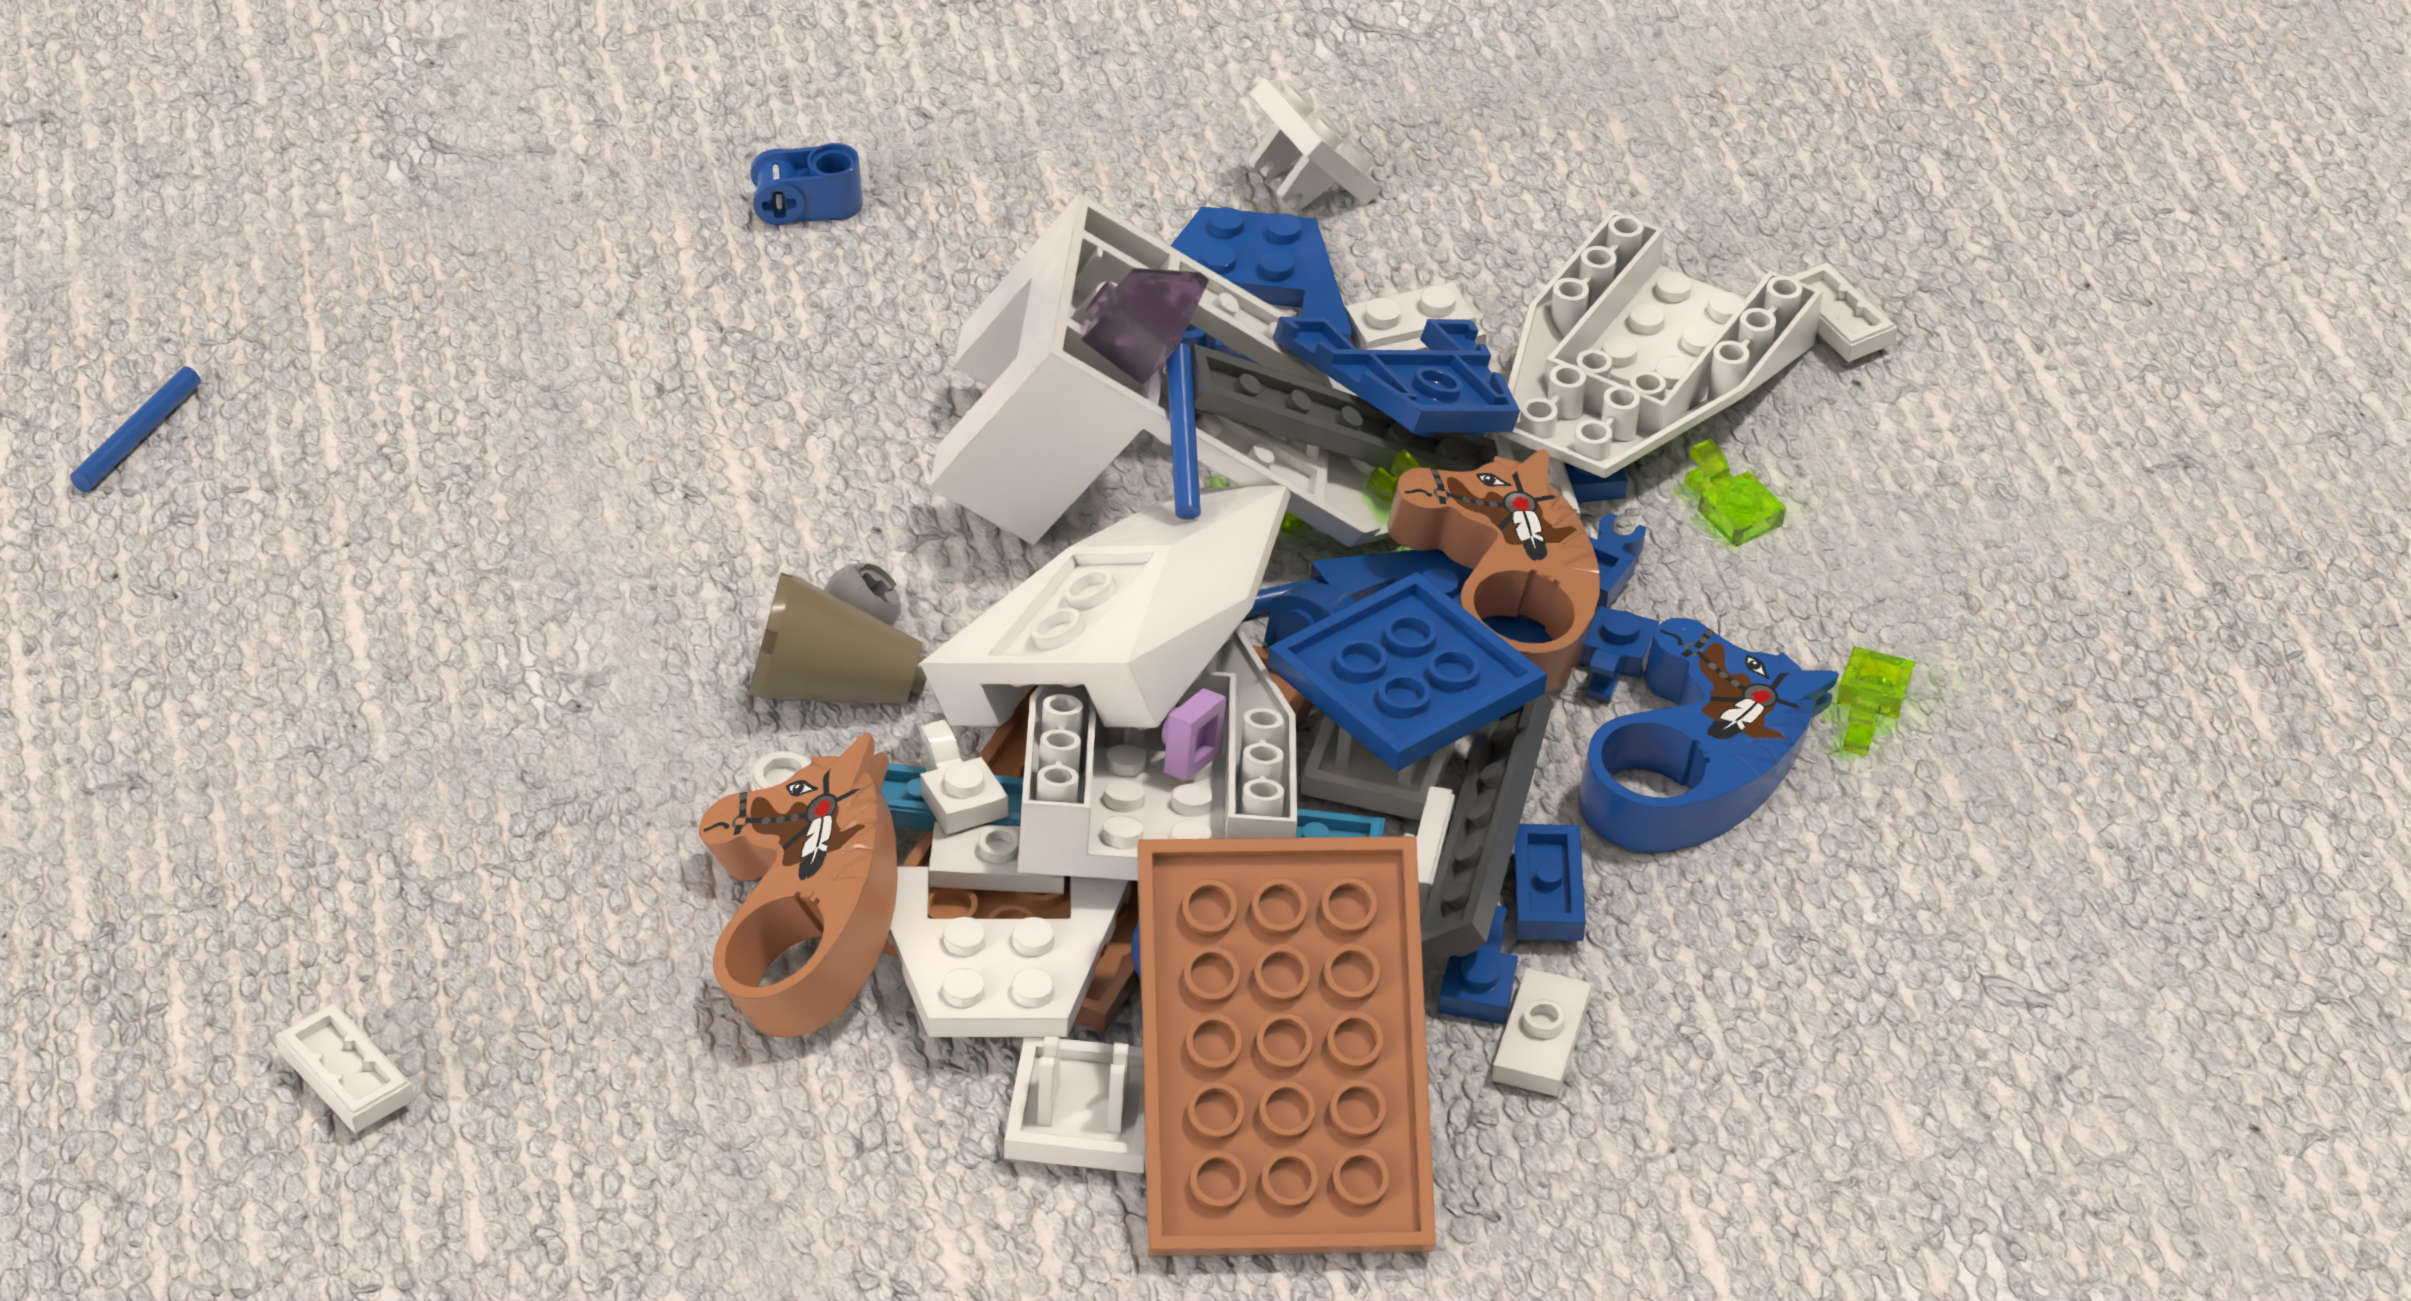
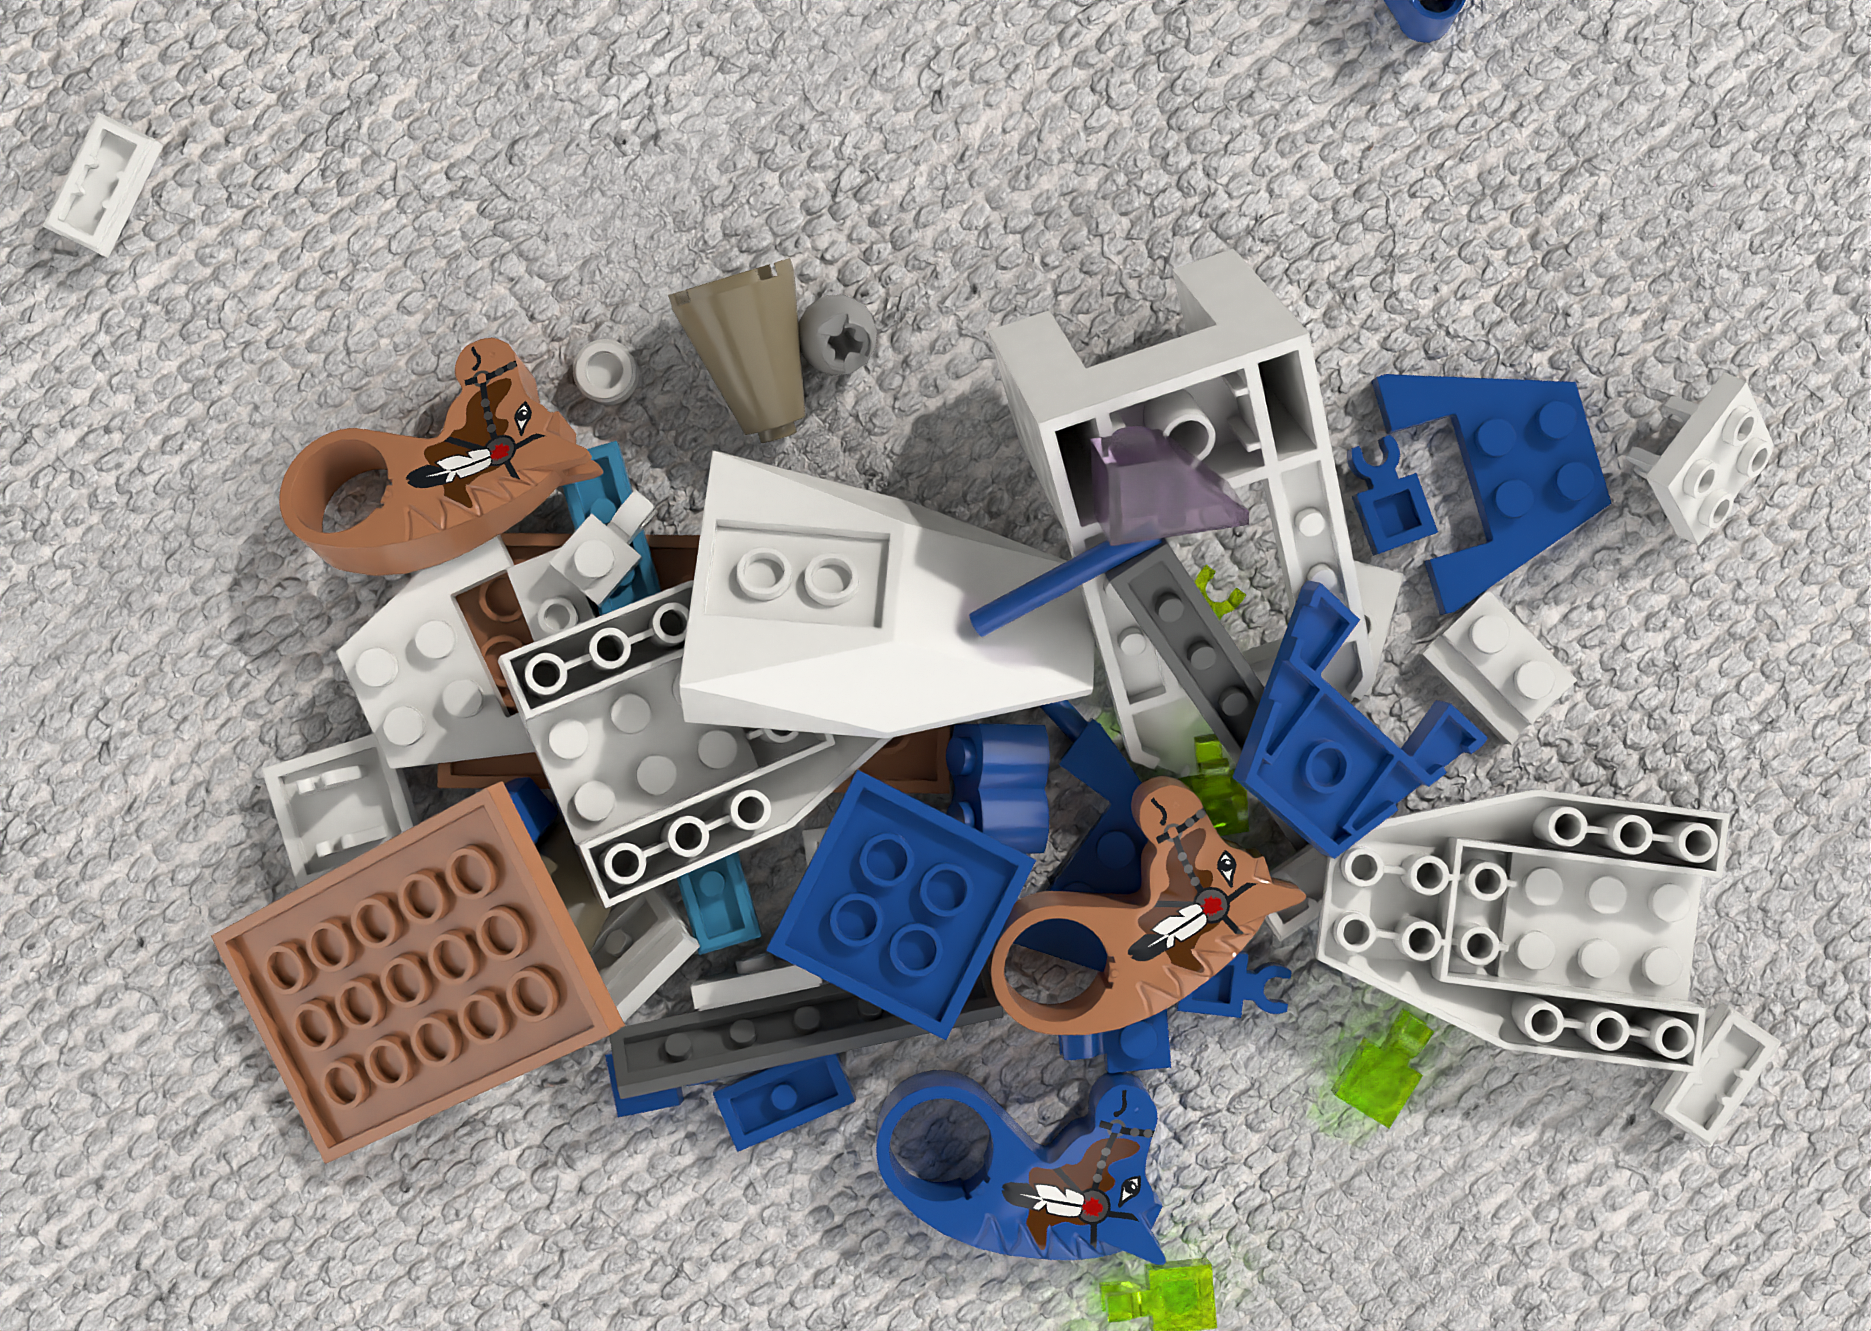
camera: 65 degrees right, 45 degrees up
(1193, 734) = (714, 747): lavender plate -> none
(1542, 1032) = (614, 1153): white plate -> none

